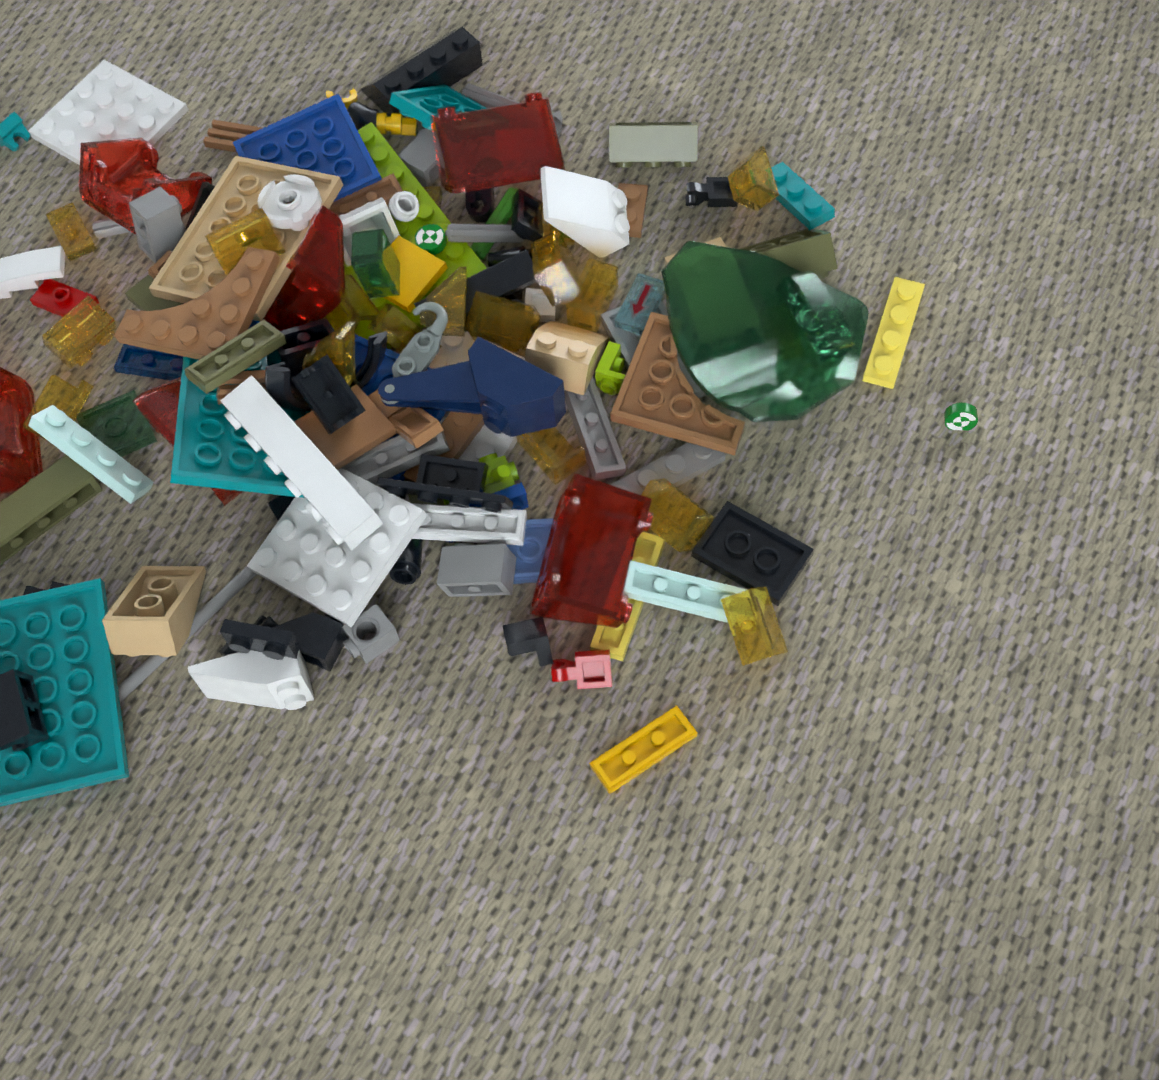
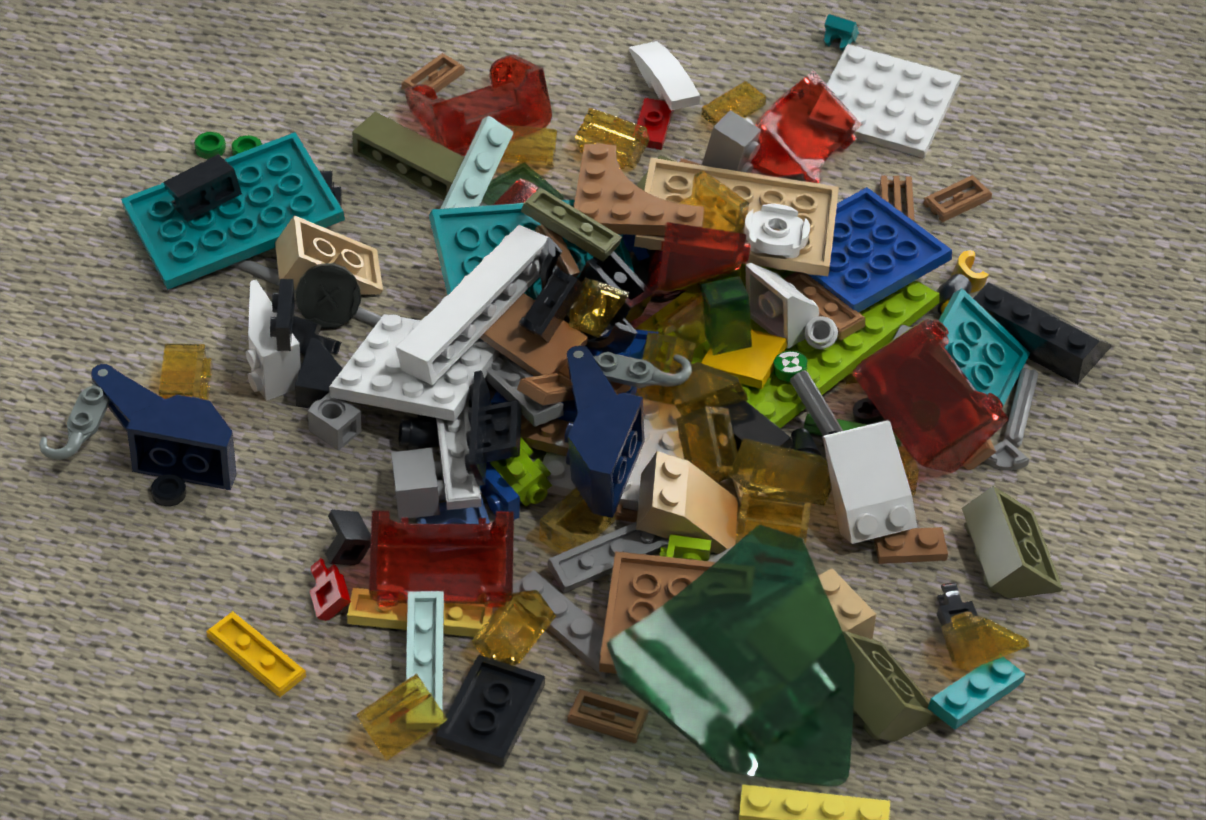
camera: 70 degrees right, 15 degrees down
(203, 609) = (328, 295): none -> pearl dark grey tile
(253, 111) = (961, 201): none -> medium nougat tile
(271, 770) = (185, 371): none -> clear yellow brick
(357, 795) = (164, 435): none -> dark blue slope
(413, 807) = (168, 490): none -> black tile
(757, 484) = (606, 721): none -> medium nougat tile

